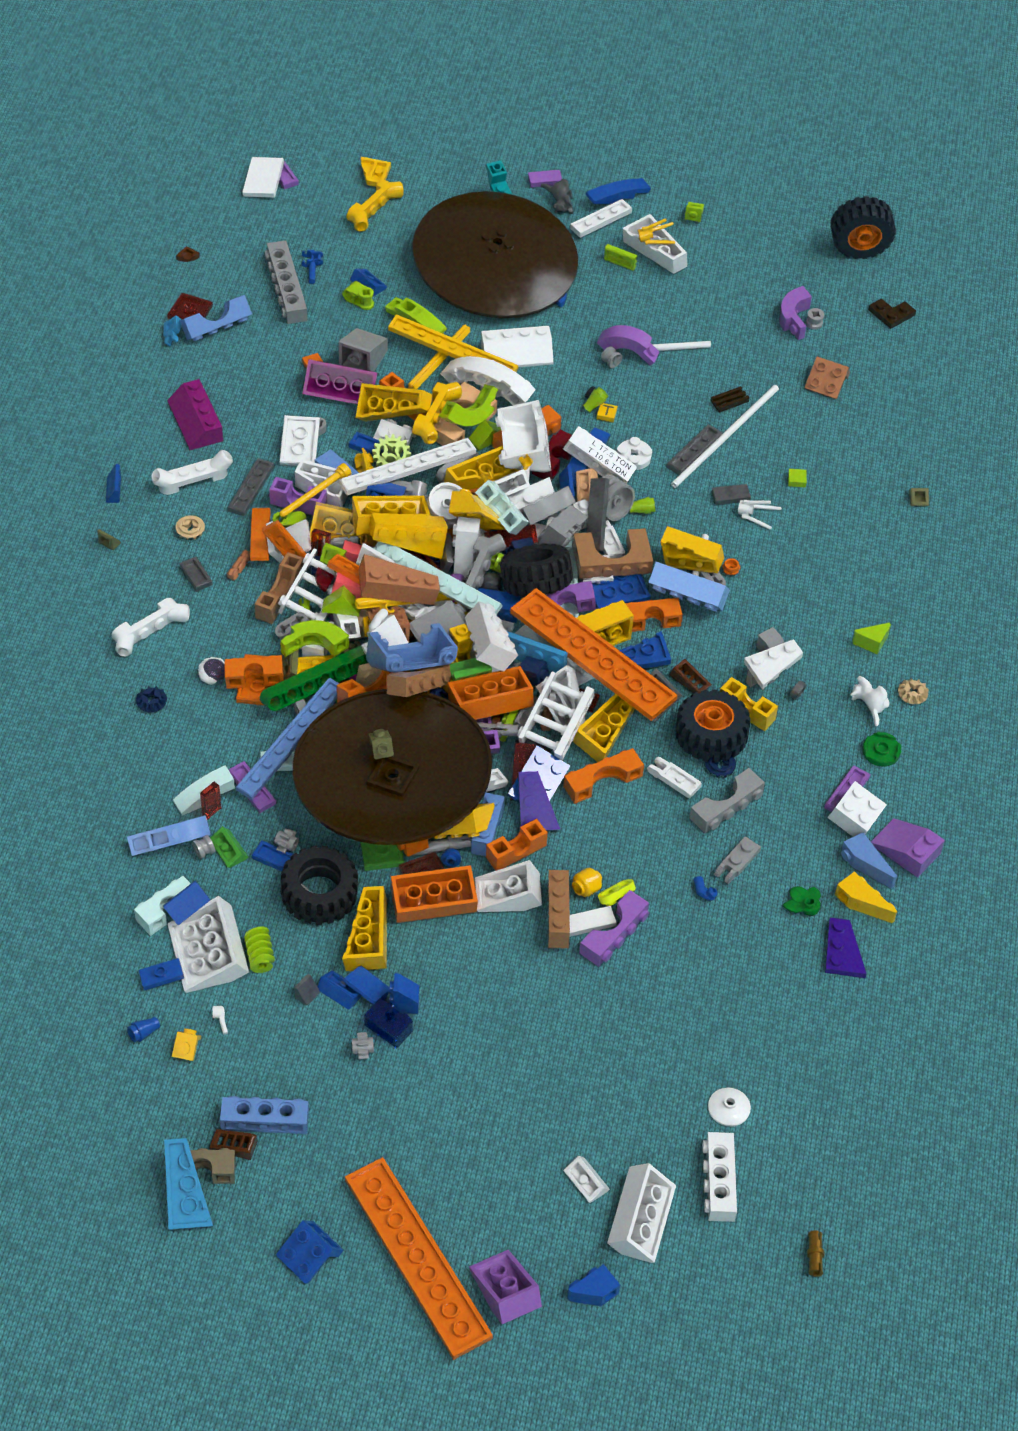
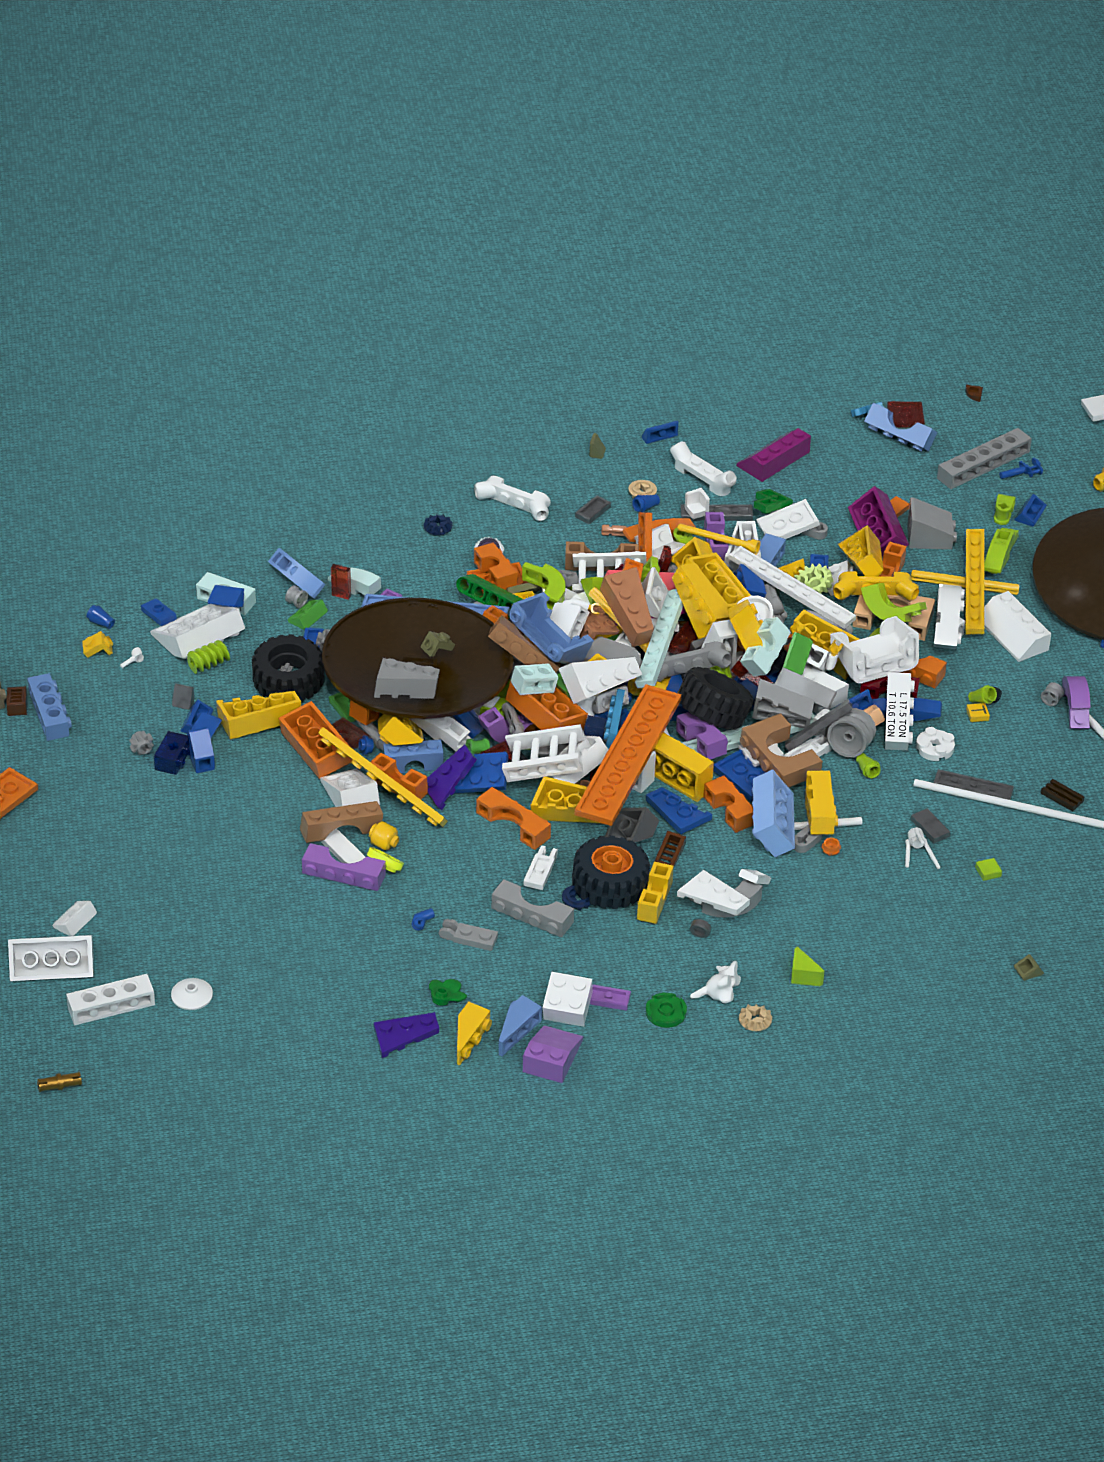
camera: 70 degrees right, 10 degrees down
(211, 531) = (645, 502): none -> blue cone
(245, 492) = (696, 503): none -> white panel
(268, 438) = (771, 501): none -> green plate
(436, 782) = (406, 679): none -> light grey wedge
(471, 684) = (534, 679): none -> light aqua brick
(504, 770) = (478, 746): none -> bright green bush
(511, 491) = (798, 653): none -> bright green slope
(516, 857) = (388, 783): none -> yellow plate
(756, 628) = (754, 876): none -> white tile

